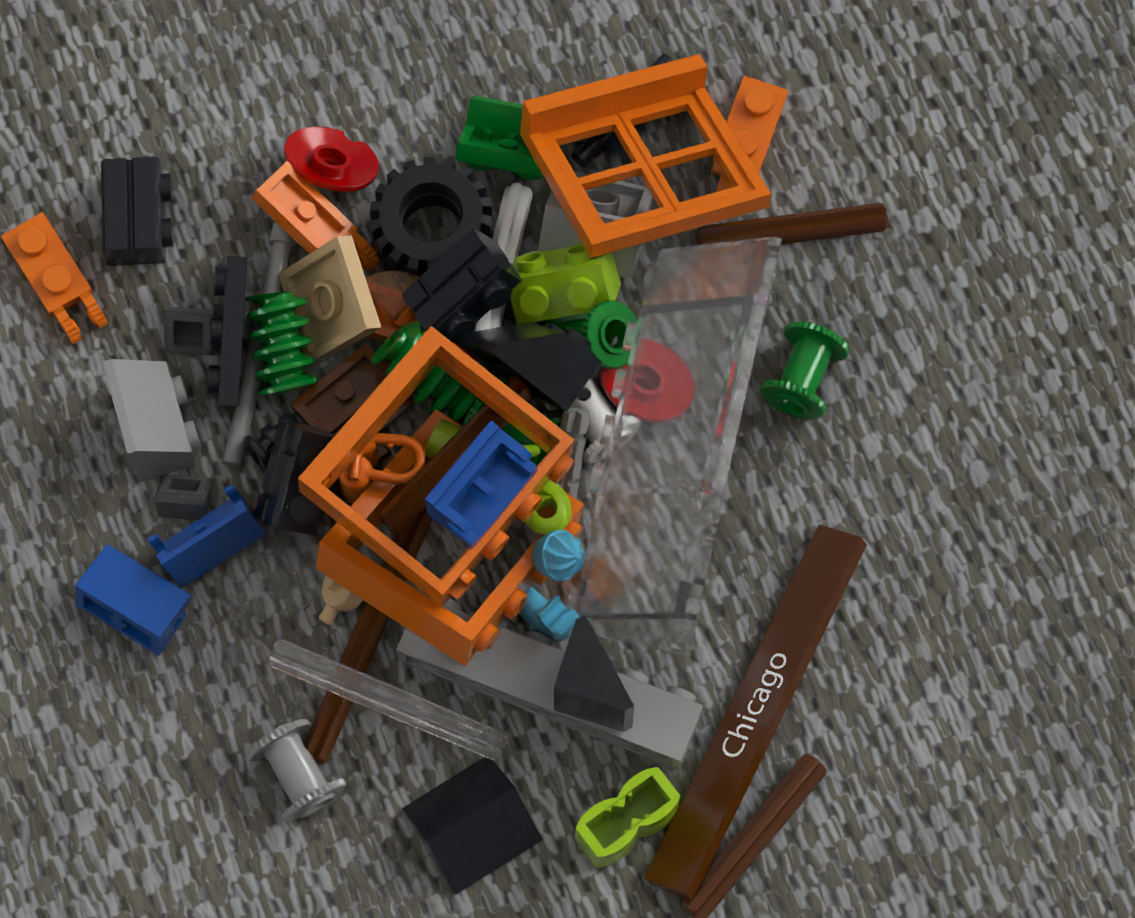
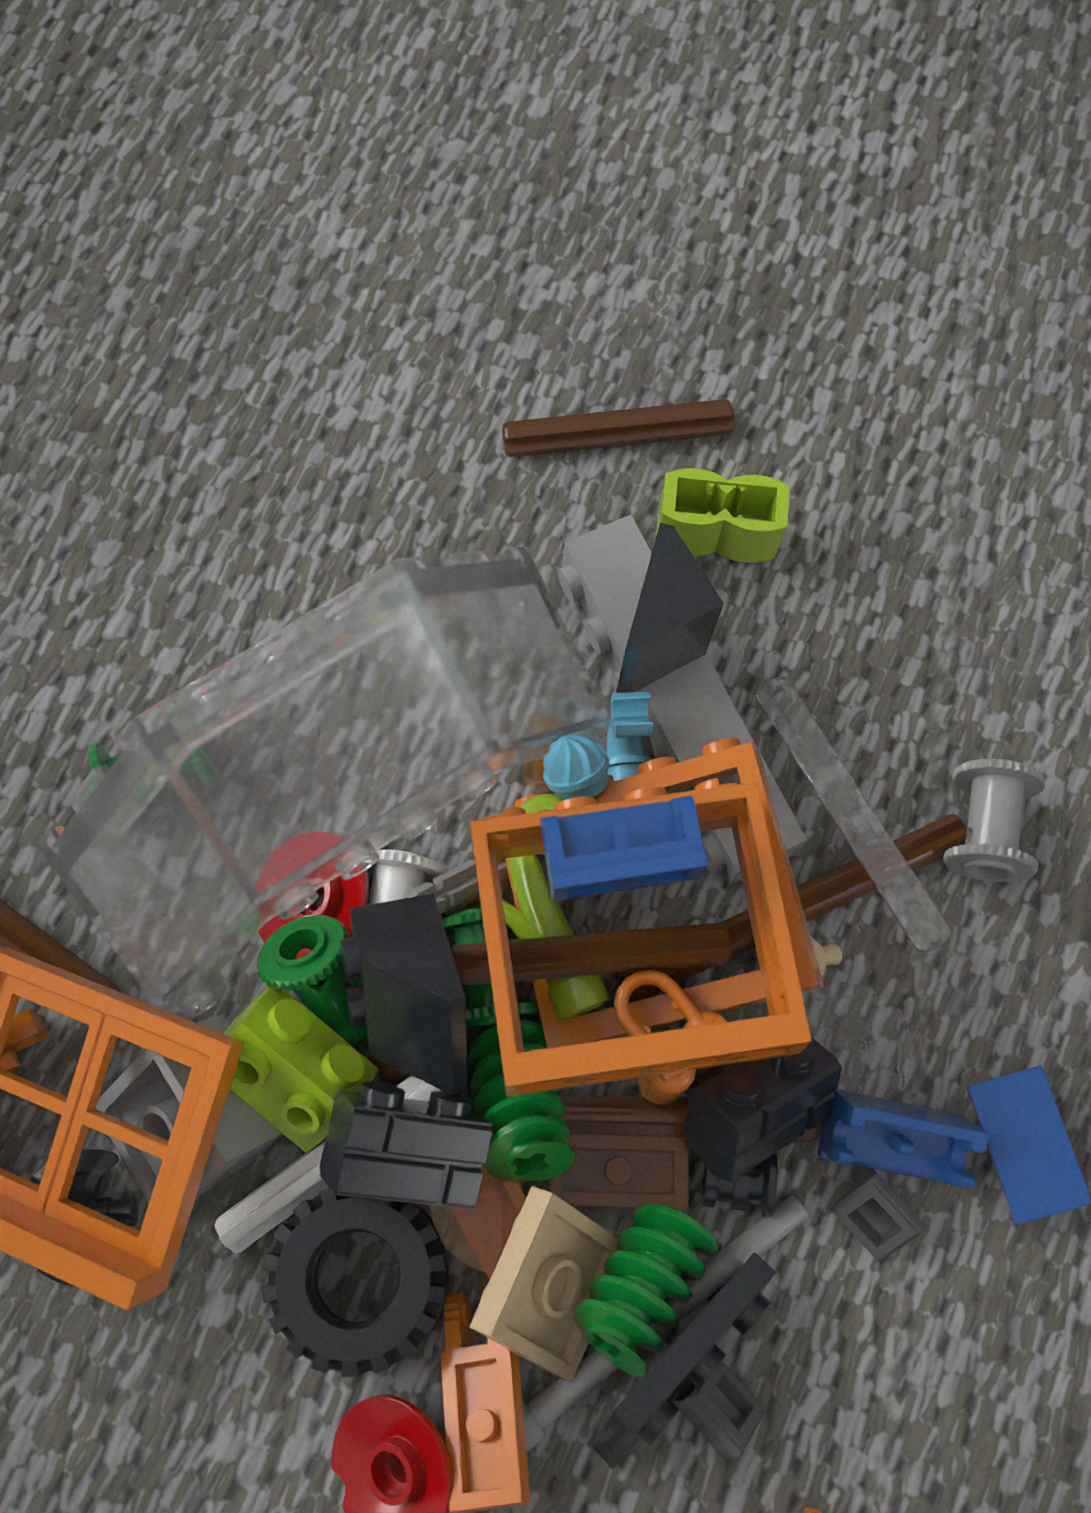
camera: 140 degrees left, 0 degrees up
(151, 416) = (862, 1332): light grey slope -> none
(473, 823) = (859, 649): black slope -> none
(494, 139) = (195, 1320): green bracket -> none
(755, 712) = (515, 515): reddish brown tile -> none

